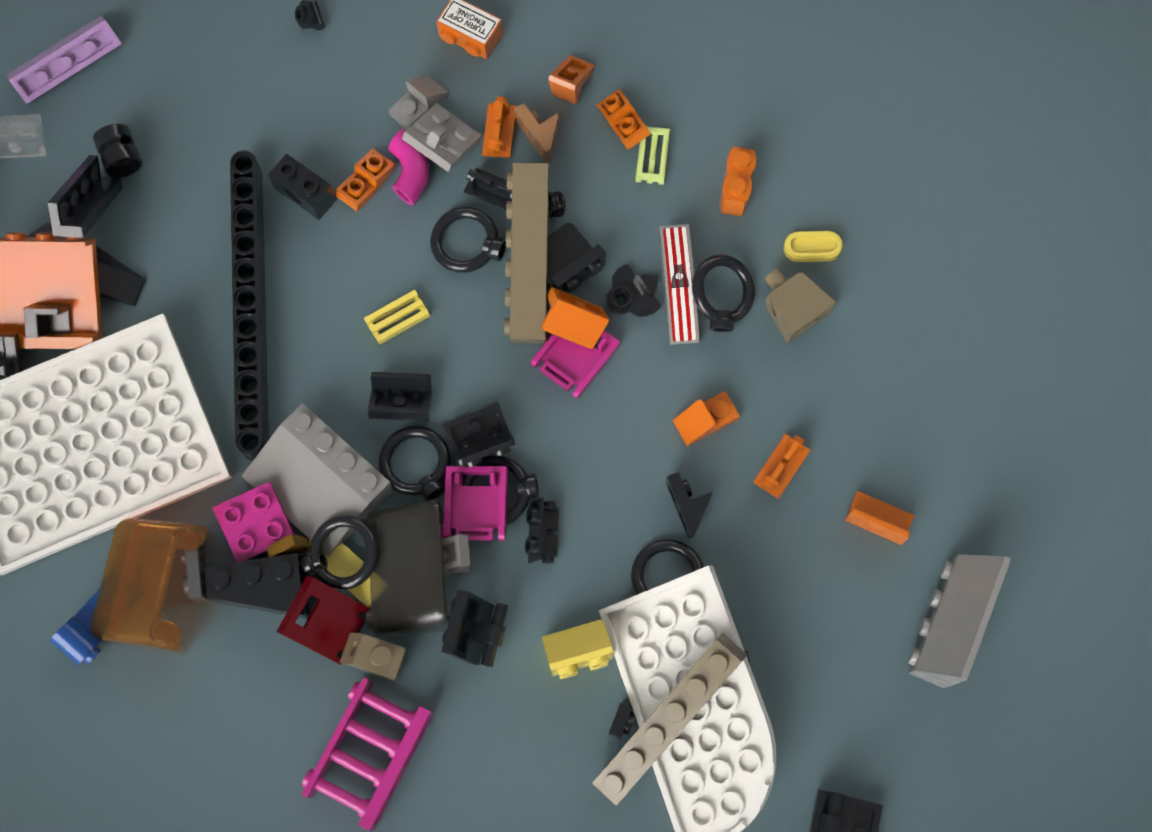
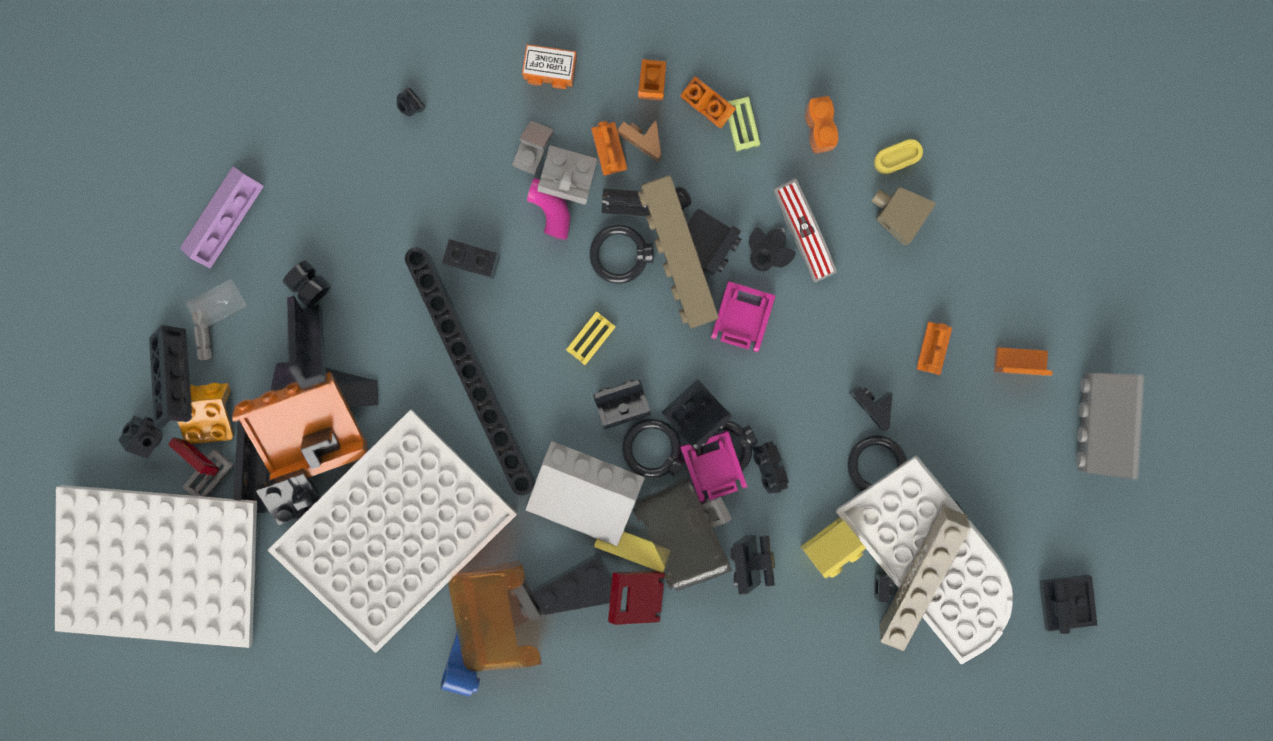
camera: 25 degrees left, 15 degrees up
(253, 521) = (552, 543): dark pink plate -> none
(288, 545) = (585, 553): pearl gold tile -> none
(316, 564) = (612, 557): black piece -> none
(366, 180) = (517, 232): orange slope -> none
(373, 655) = (688, 609): dark tan torso -> none
(384, 780) = (726, 691): dark pink fence -> none
(574, 318) = (735, 291): orange panel -> none
(705, 418) = (863, 331): orange slope -> none
(723, 319) = (846, 248): black piece -> none

